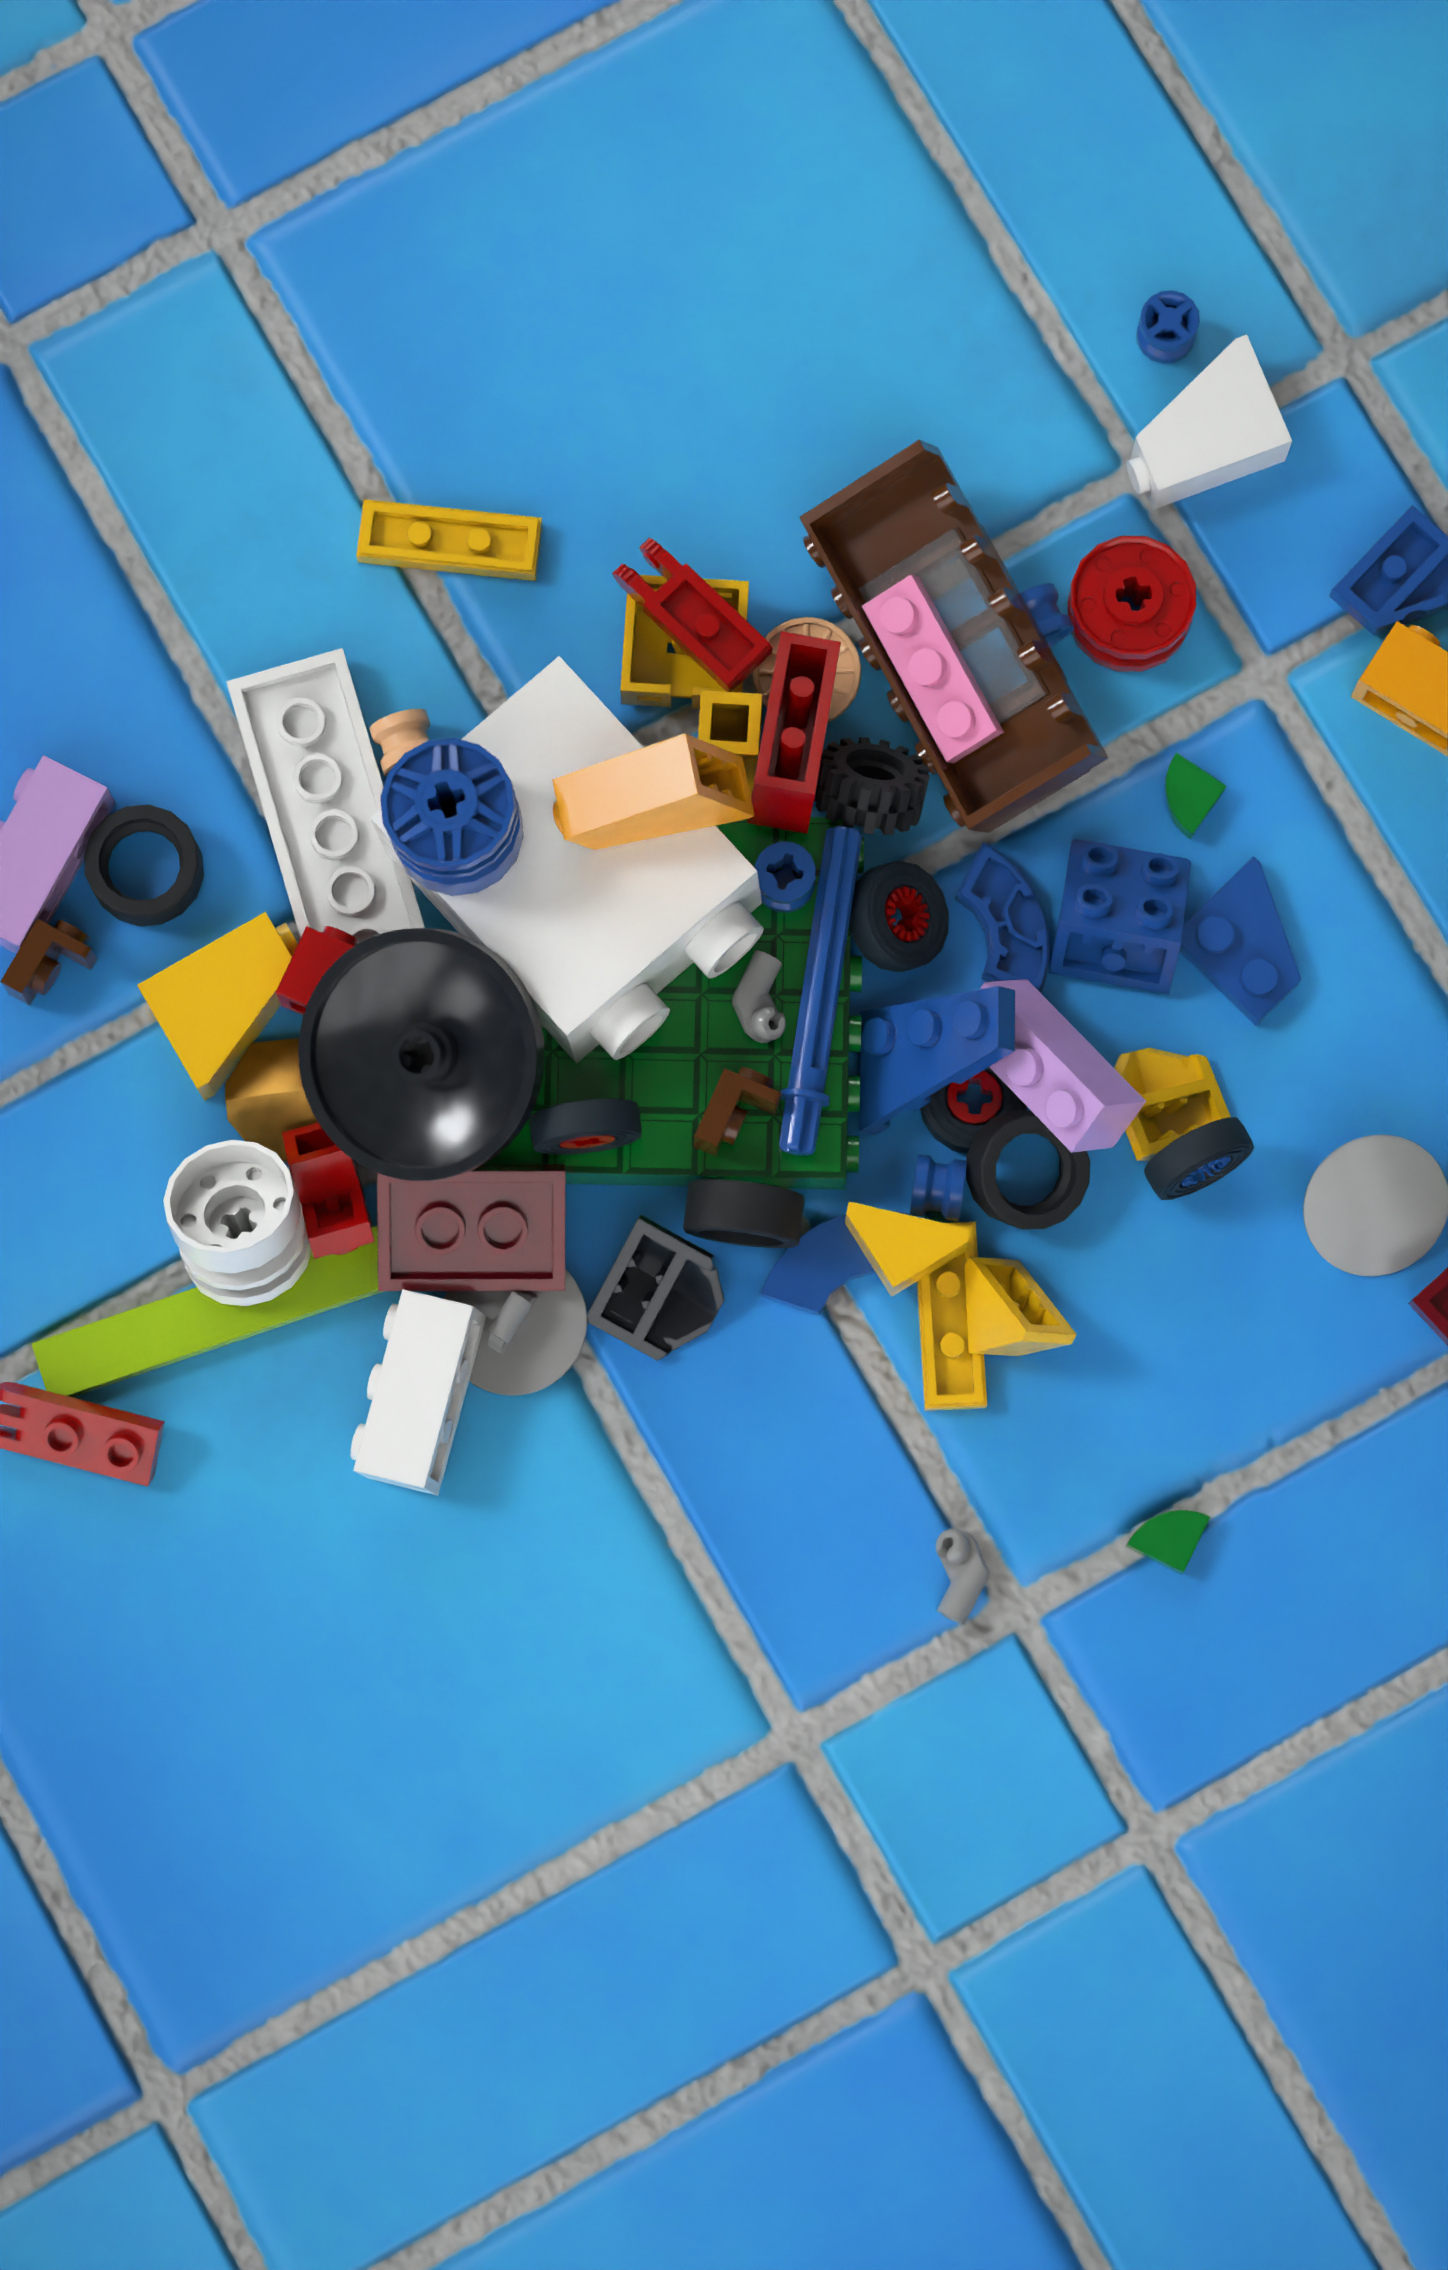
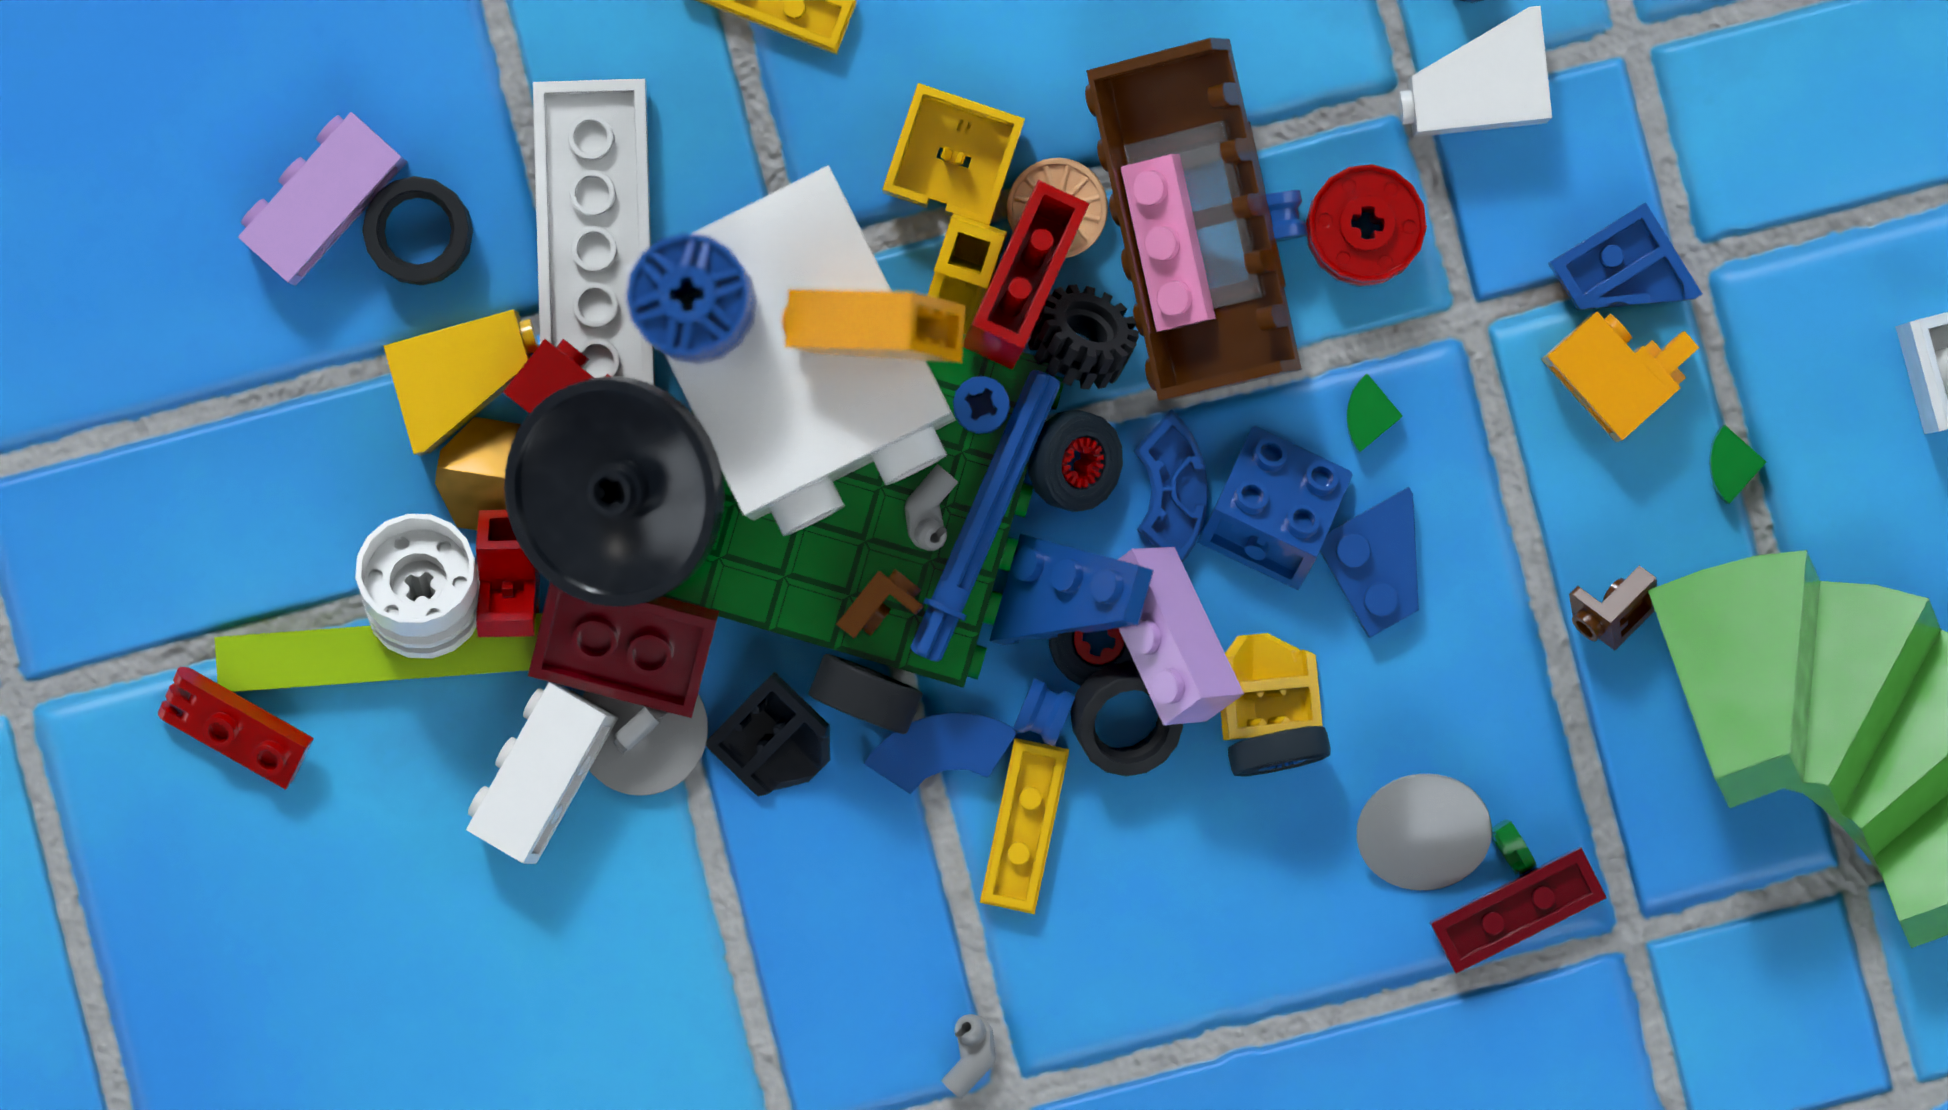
camera: 20 degrees right, 10 degrees up
(35, 963) = (299, 298): reddish brown bracket -> none
(399, 734) = (678, 180): light nougat wheel -> none
(585, 1126) = (743, 588): black bush -> none
(696, 618) = (967, 146): red hinge -> none
(903, 1245) = (997, 761): yellow slope -> none
(1010, 1310) = (1076, 838): yellow slope -> none
(1170, 1538) = (1161, 1071): green tile -> none

